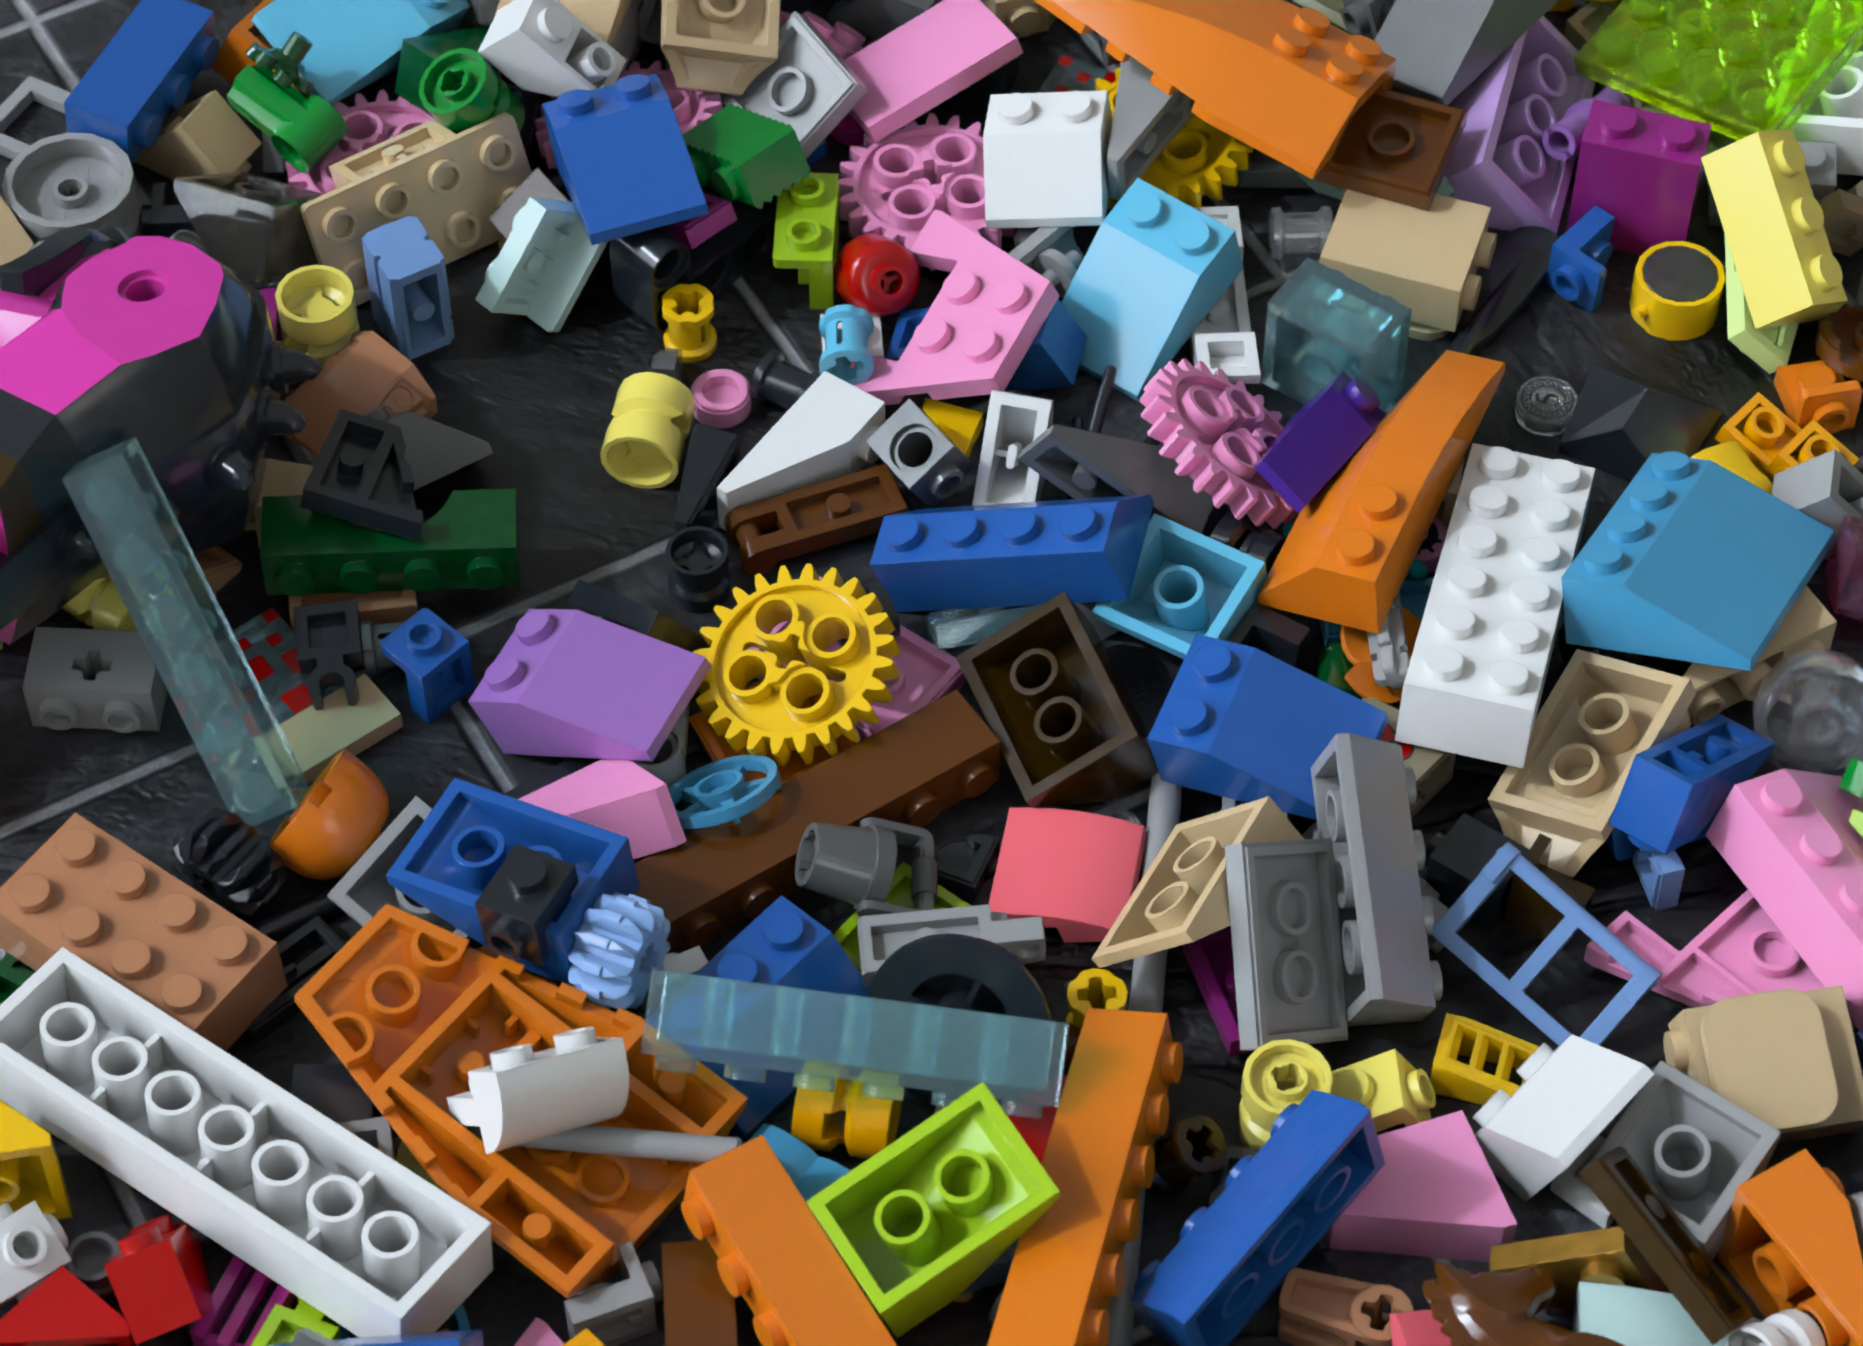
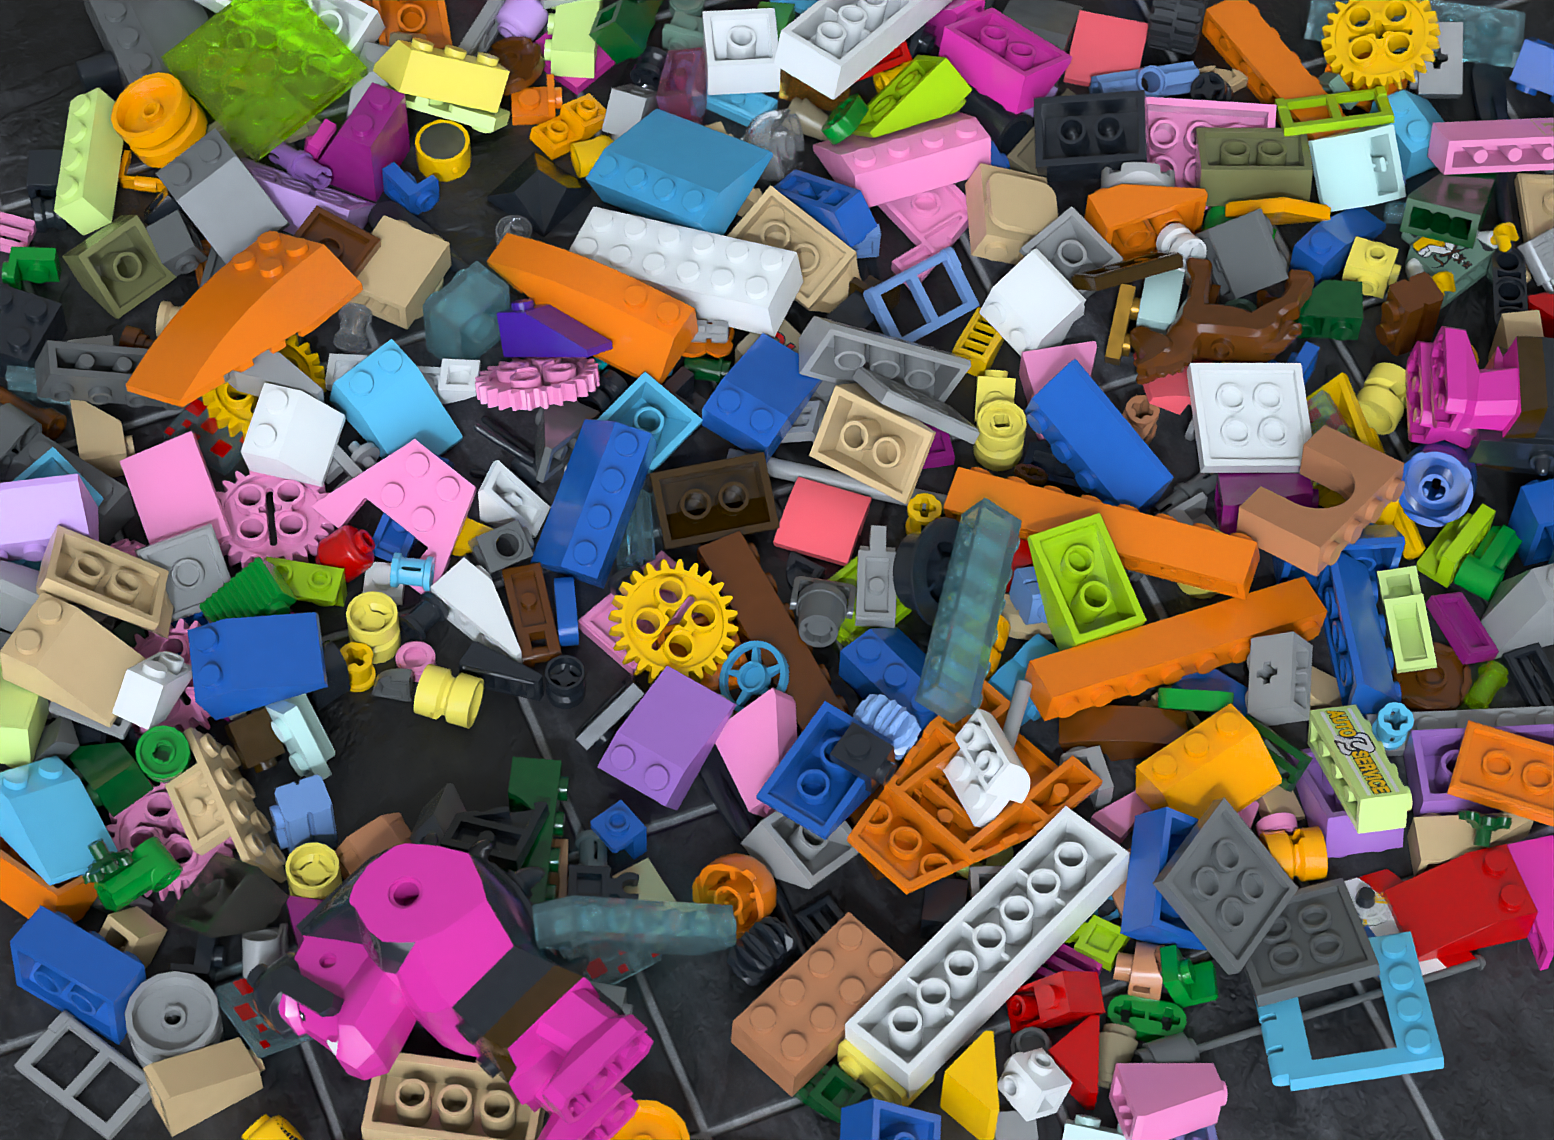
camera: 85 degrees left, 5 degrees up
(751, 319) = (374, 621): none -> light yellow wheel
(838, 546) = (566, 611): none -> blue beam

